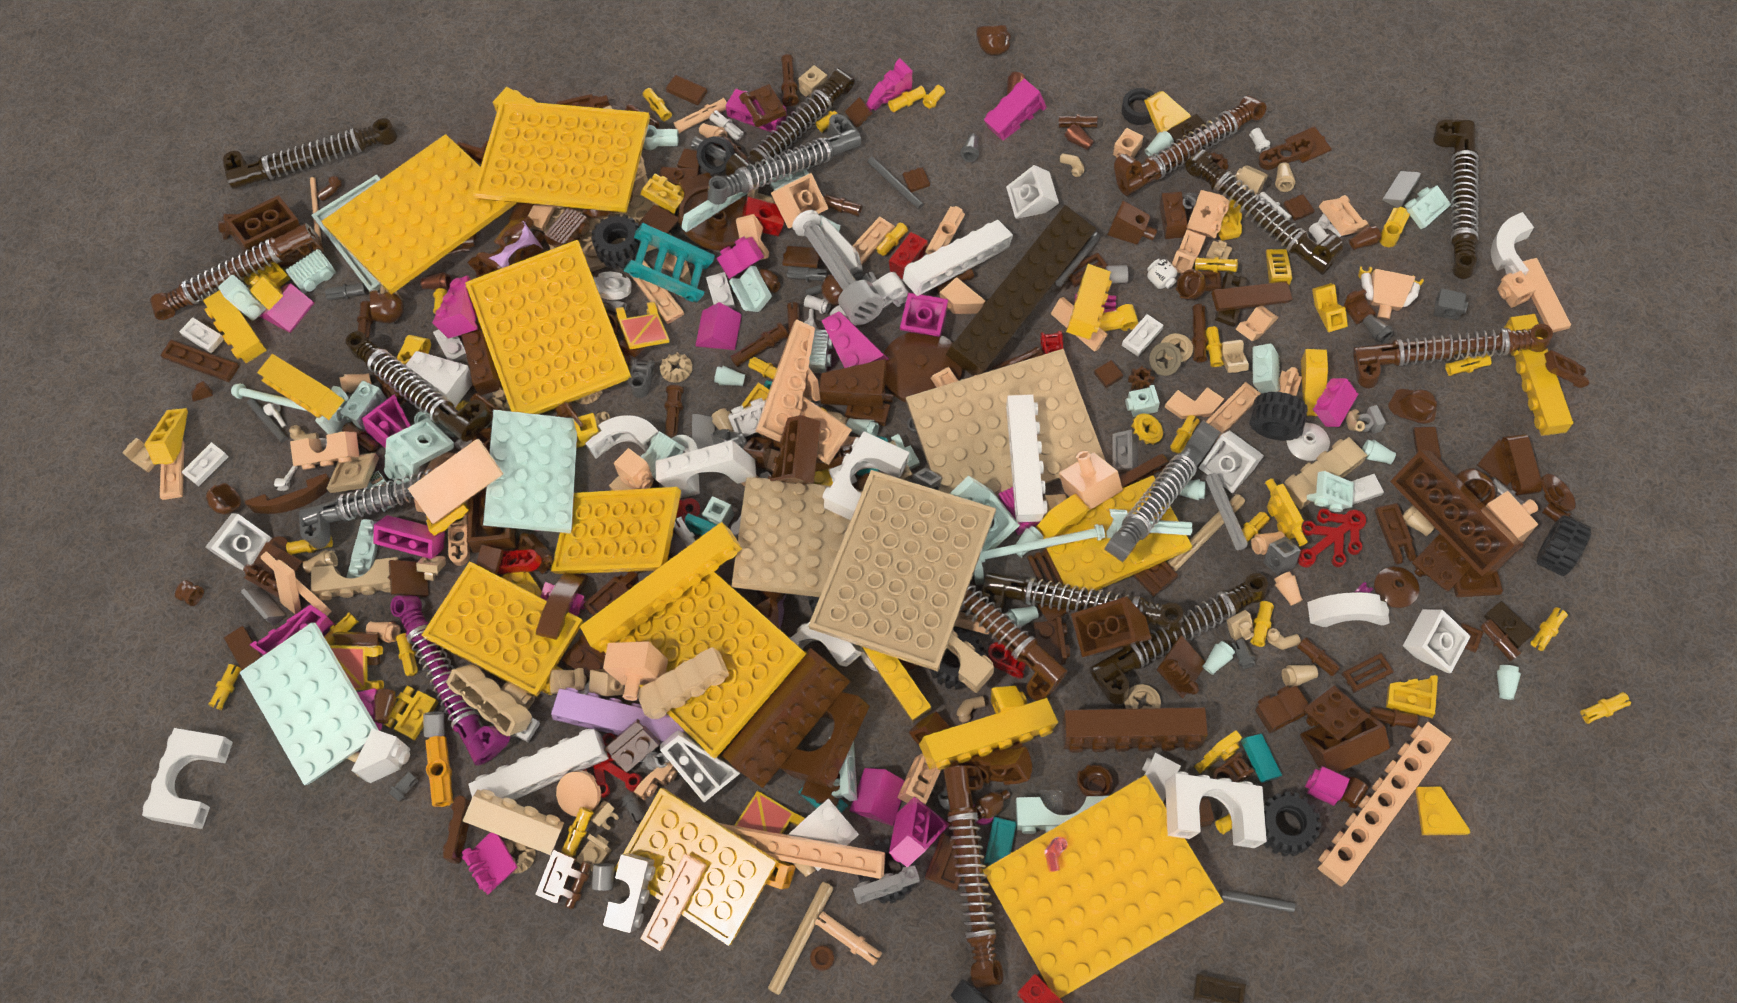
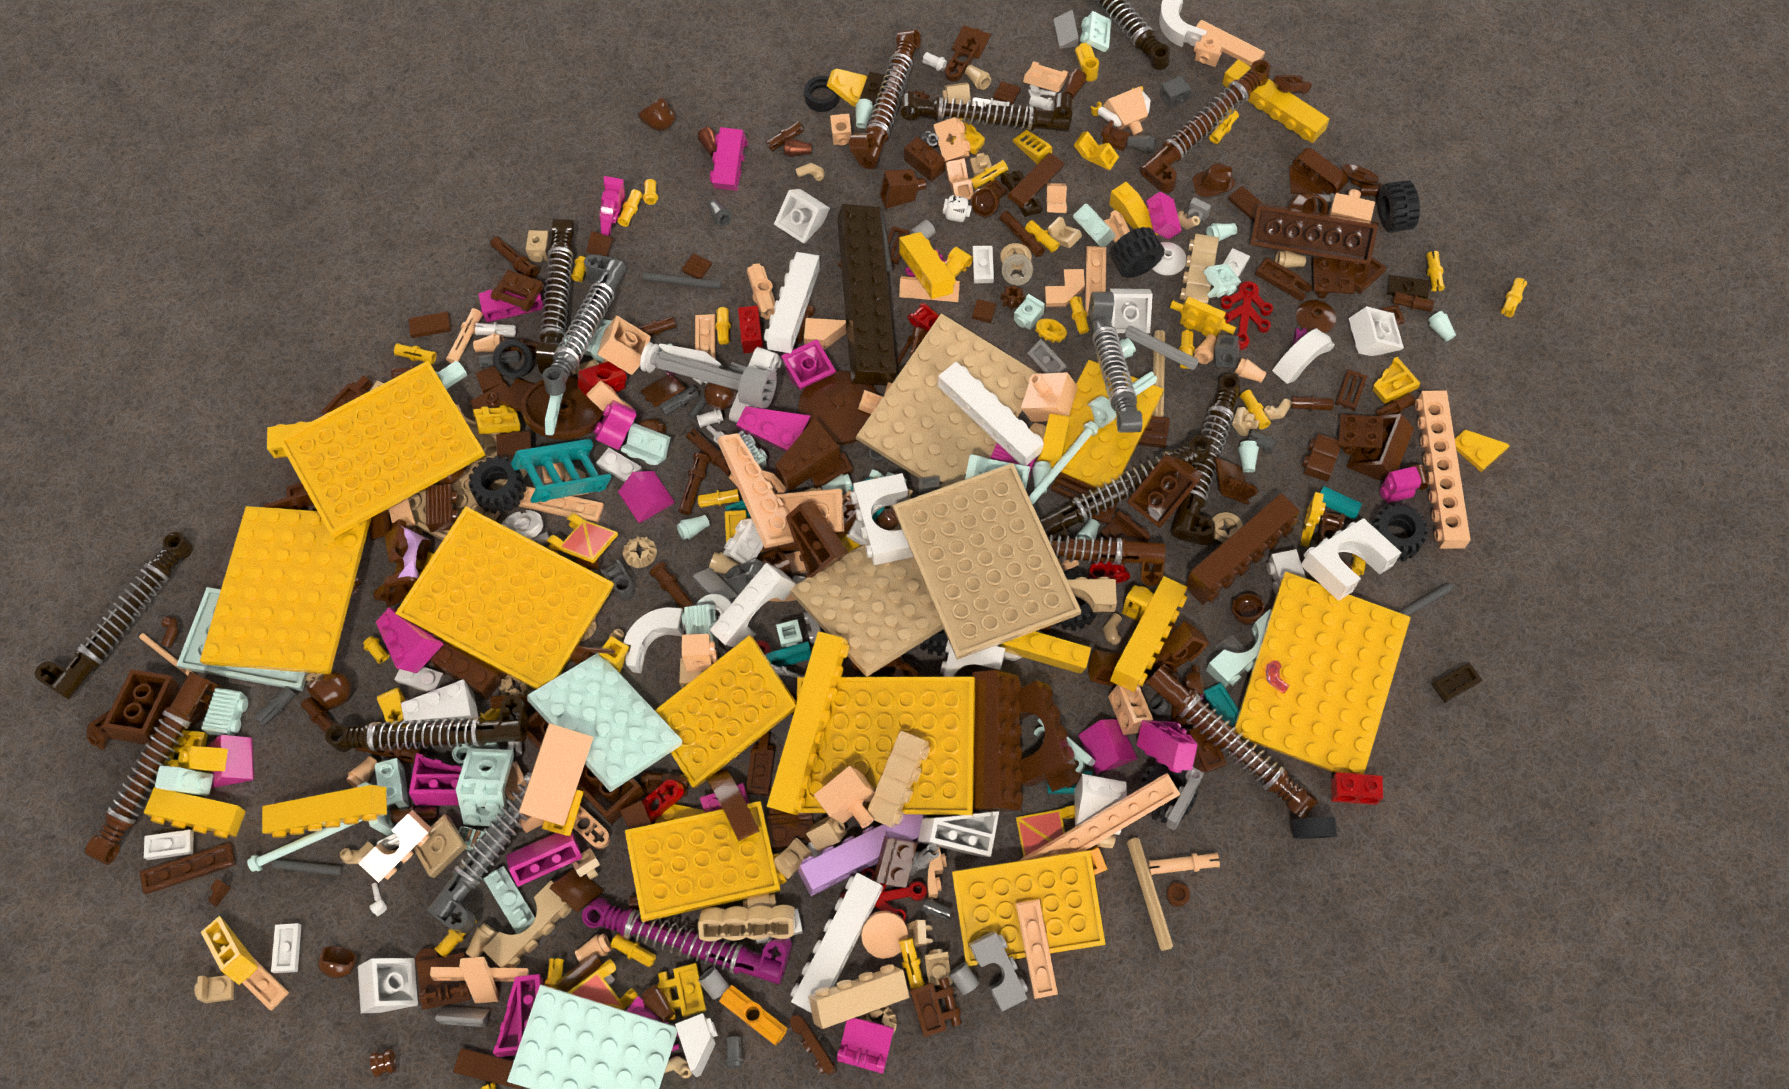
camera: 45 degrees left, 0 degrees up
(274, 409) = (307, 852): white hand -> none
(315, 489) = (379, 936): reddish brown slope -> none
(436, 281) = (356, 636): copper cone -> none
(1144, 470) = (1078, 360): reddish brown beam -> none
(1298, 674) = (1310, 426): tan cone -> none

